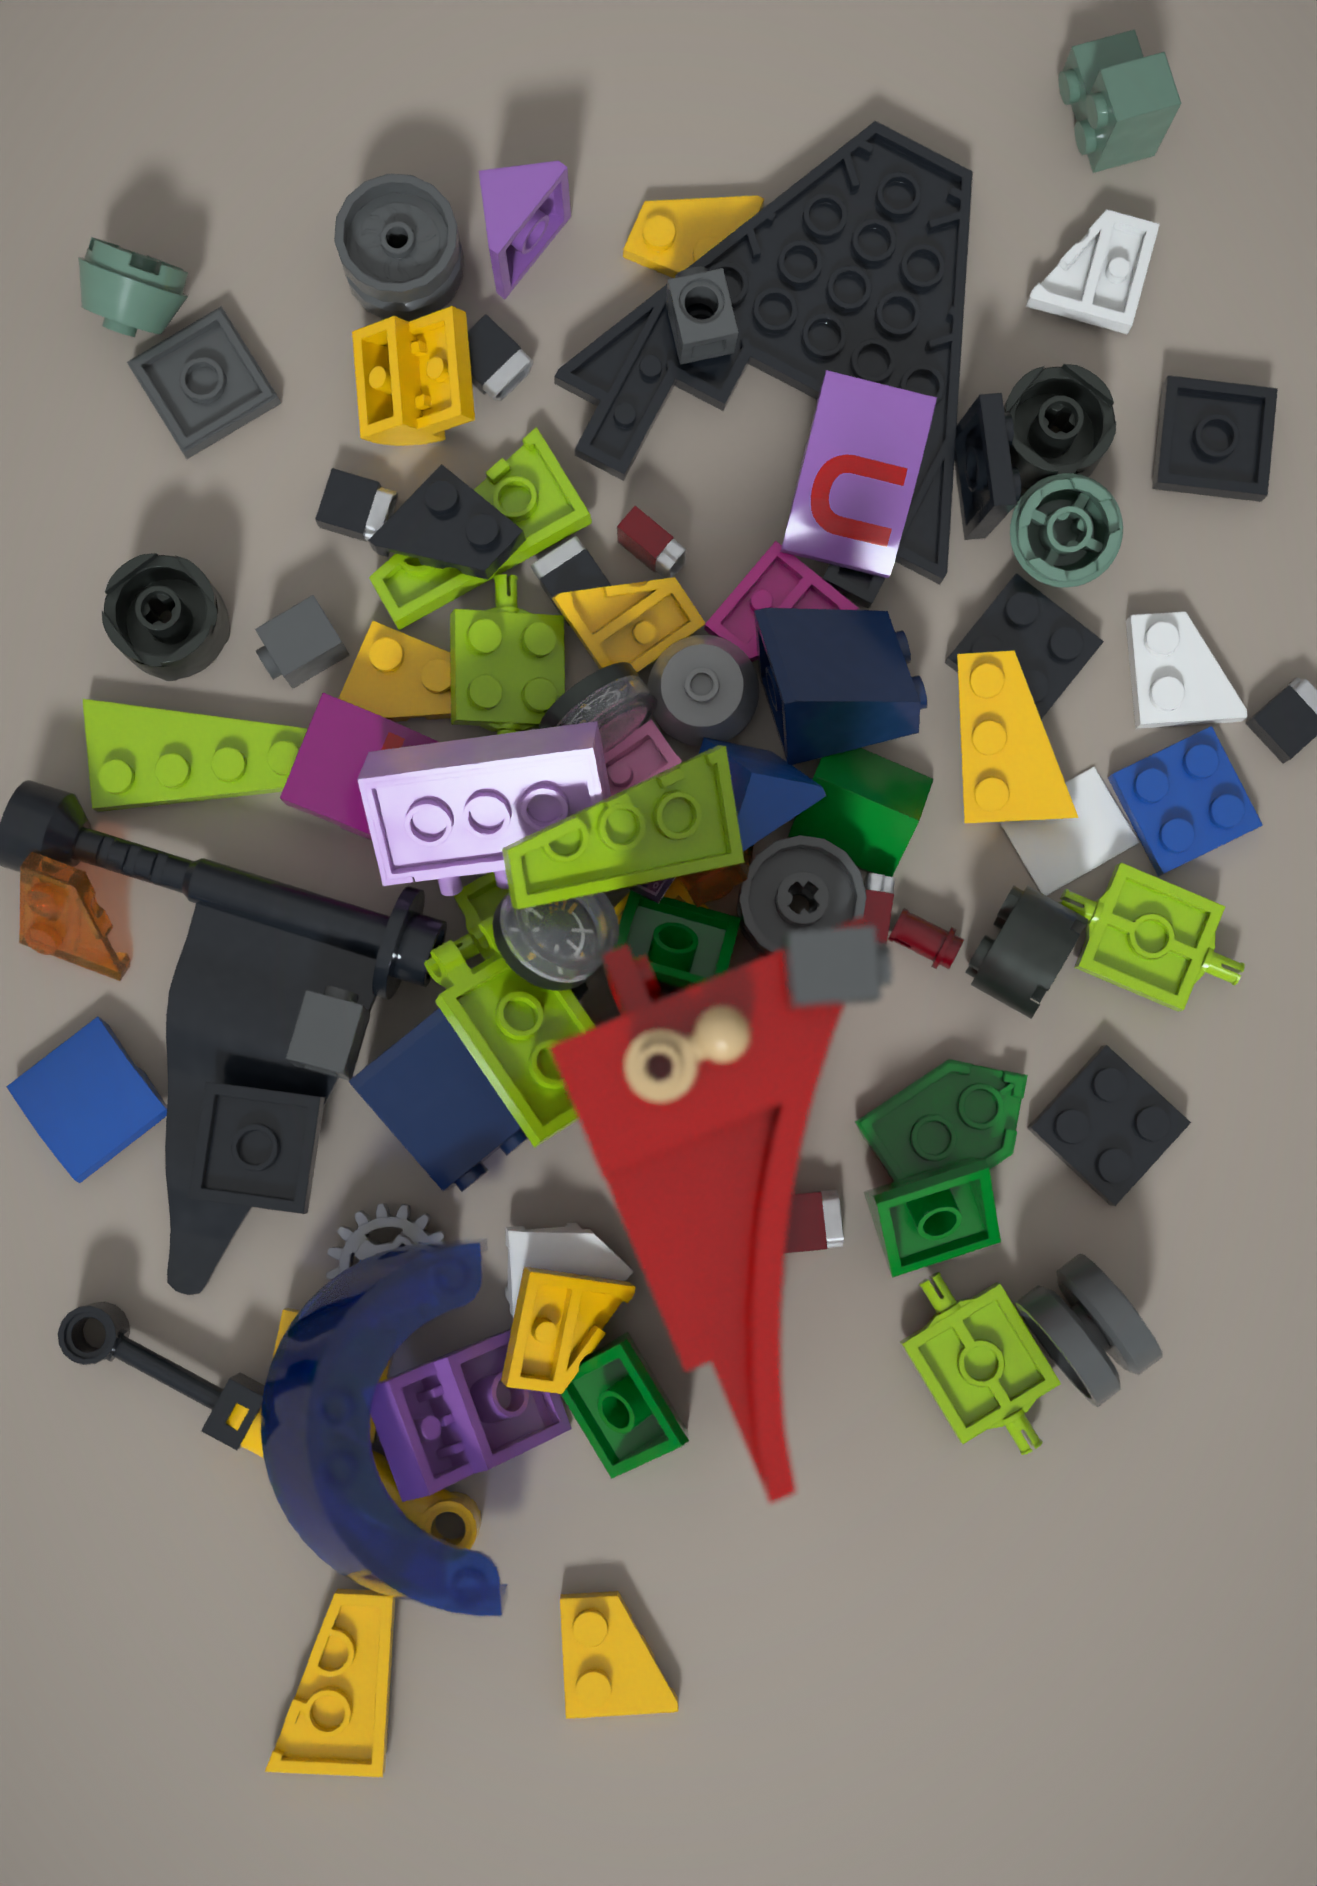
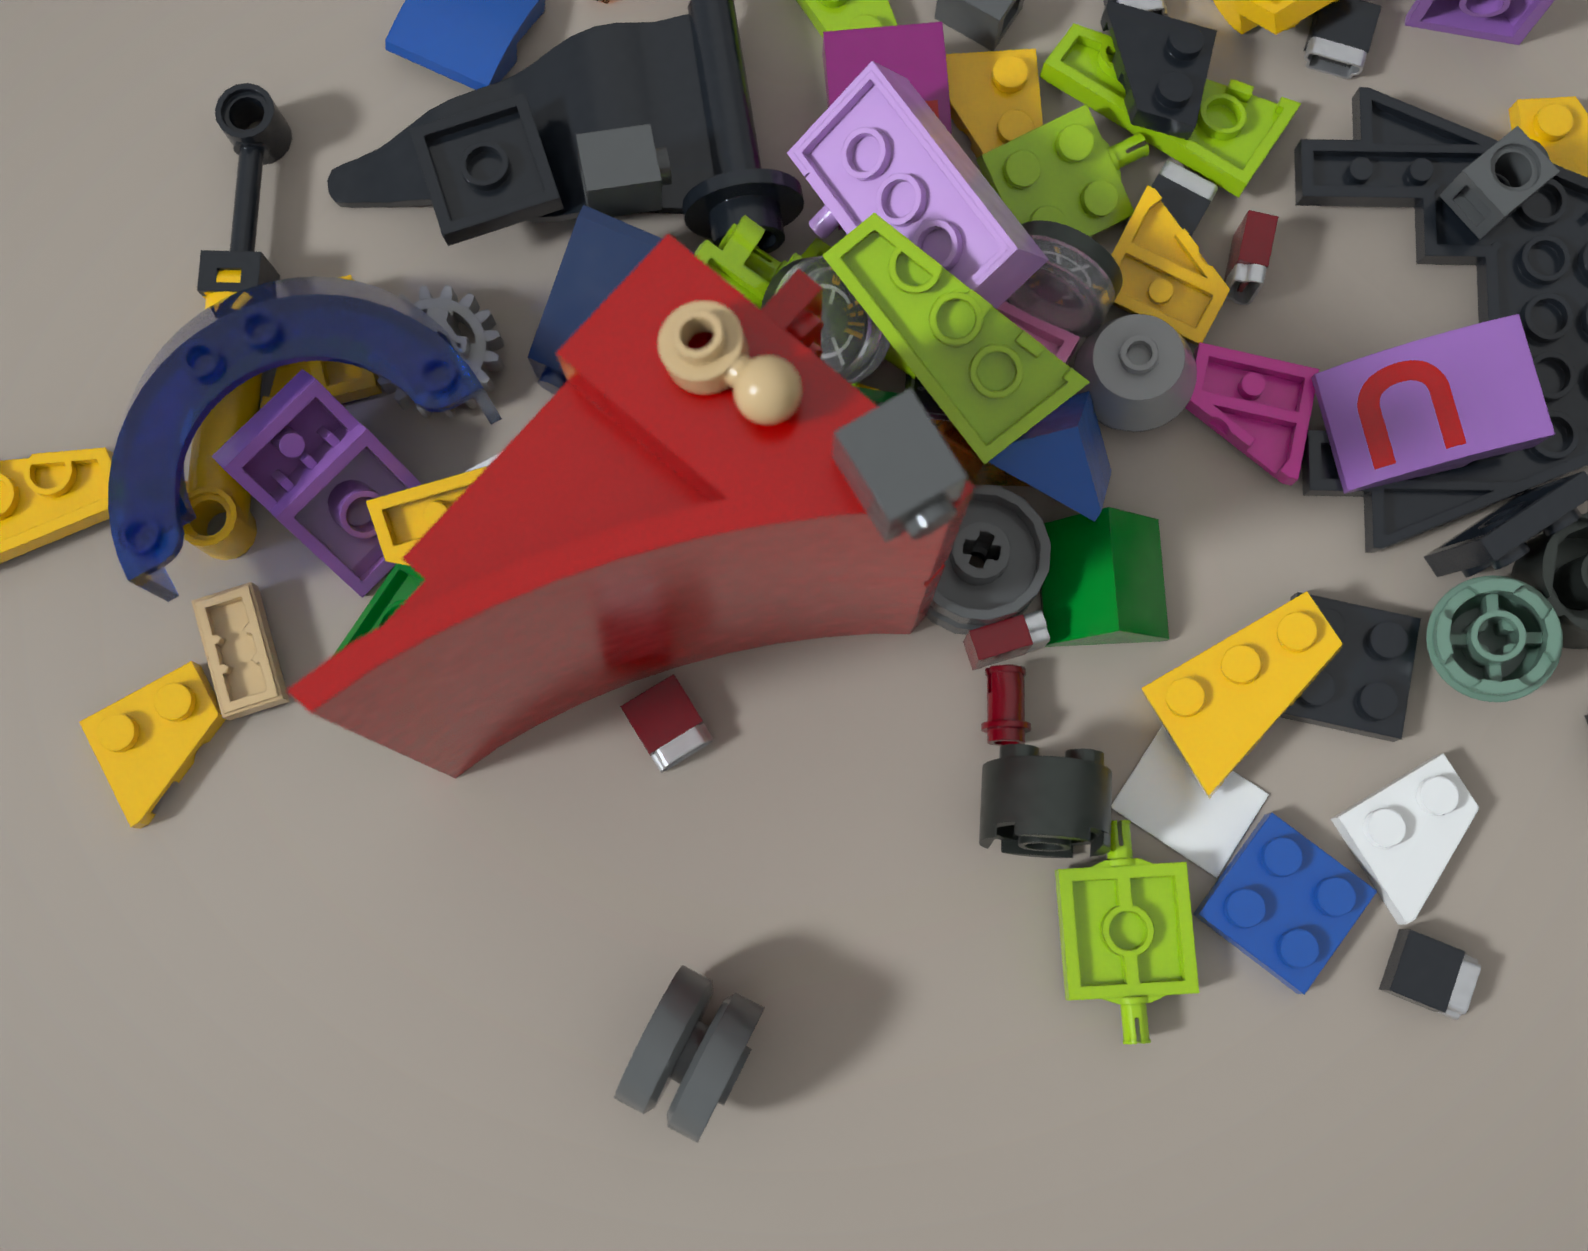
camera: 70 degrees right, 5 degrees down
(571, 1553) = (240, 651): none -> tan plate
(836, 679) = (1215, 482): dark blue slope -> none
(935, 1215) = (730, 841): green slope -> none
(946, 1118) = (826, 818): green tile -> none
(980, 1363) = (607, 964): lime plate -> none
(1109, 1125) = (913, 983): black plate -> none

